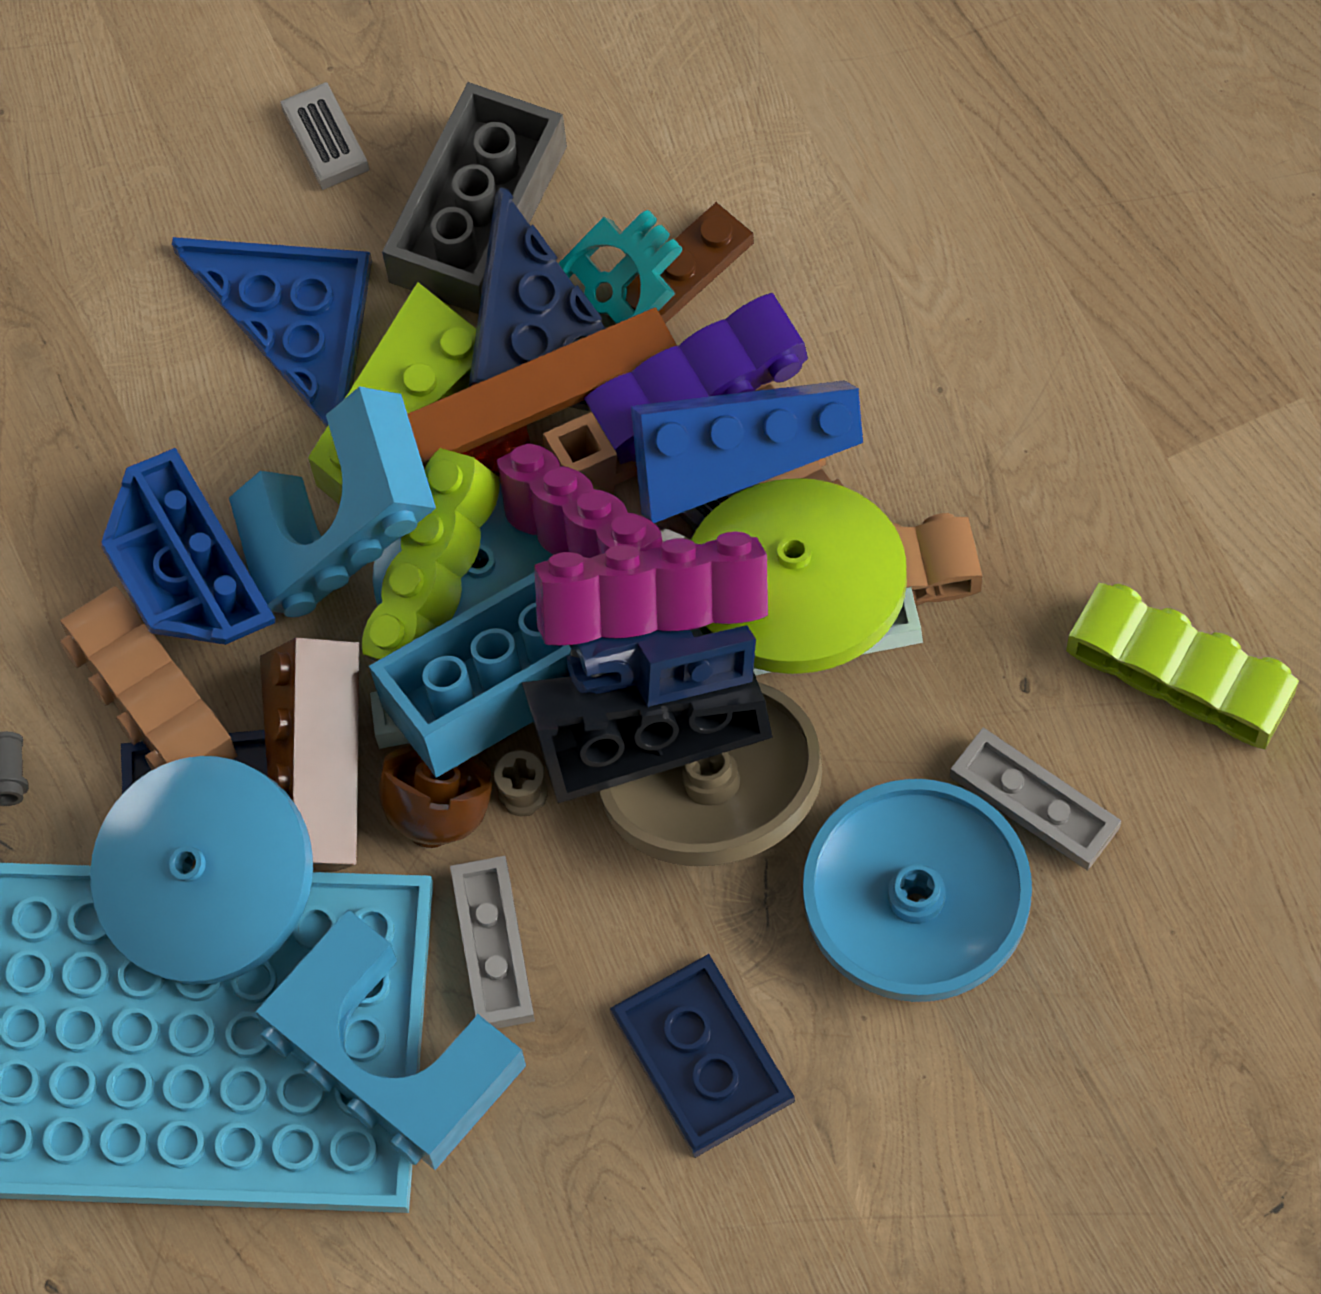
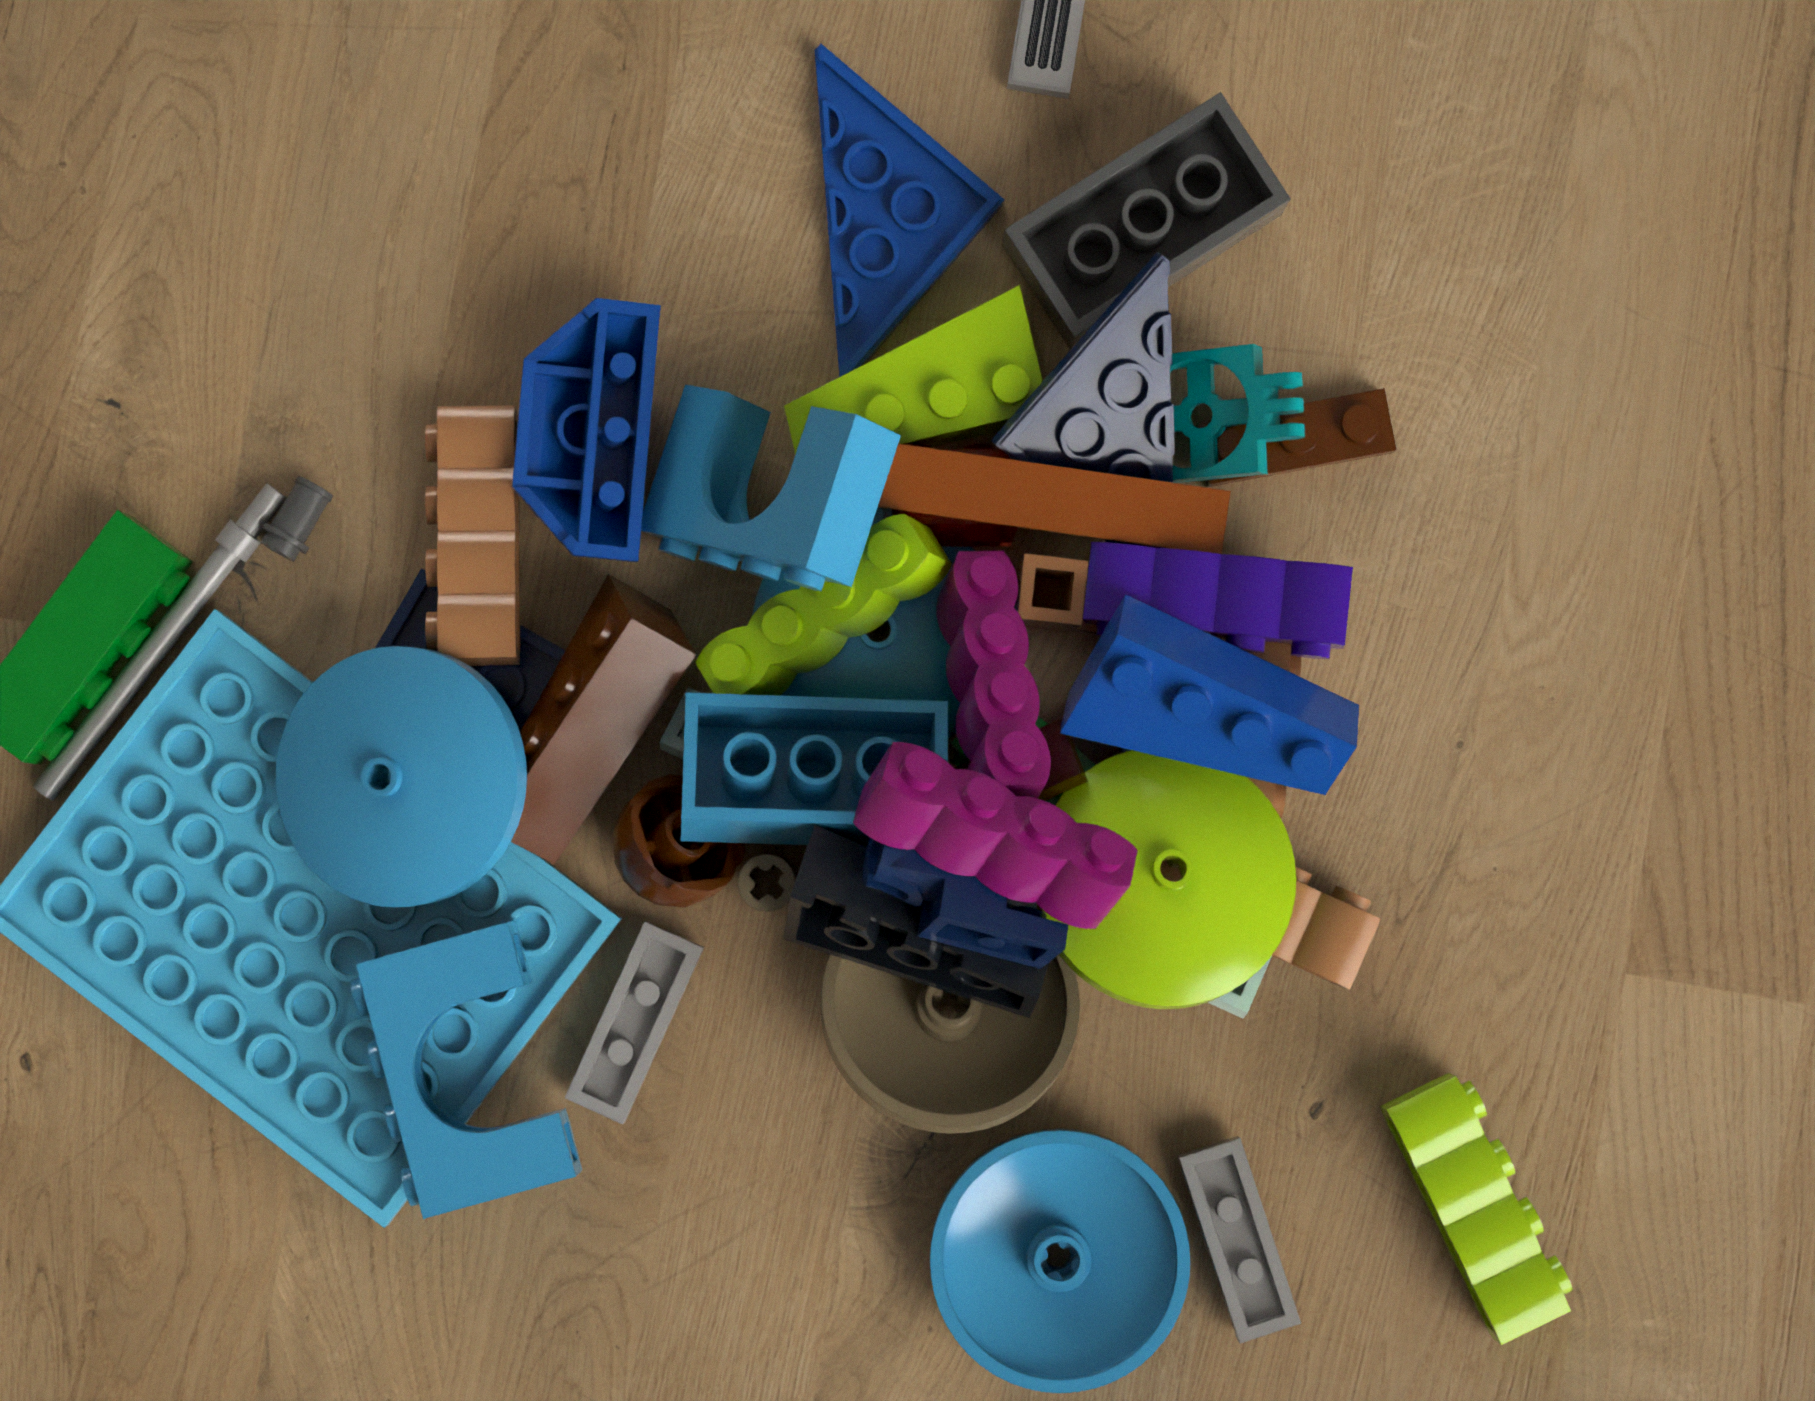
camera: 25 degrees right, 20 degrees up
(702, 1055) = (755, 1263): dark blue tile -> none

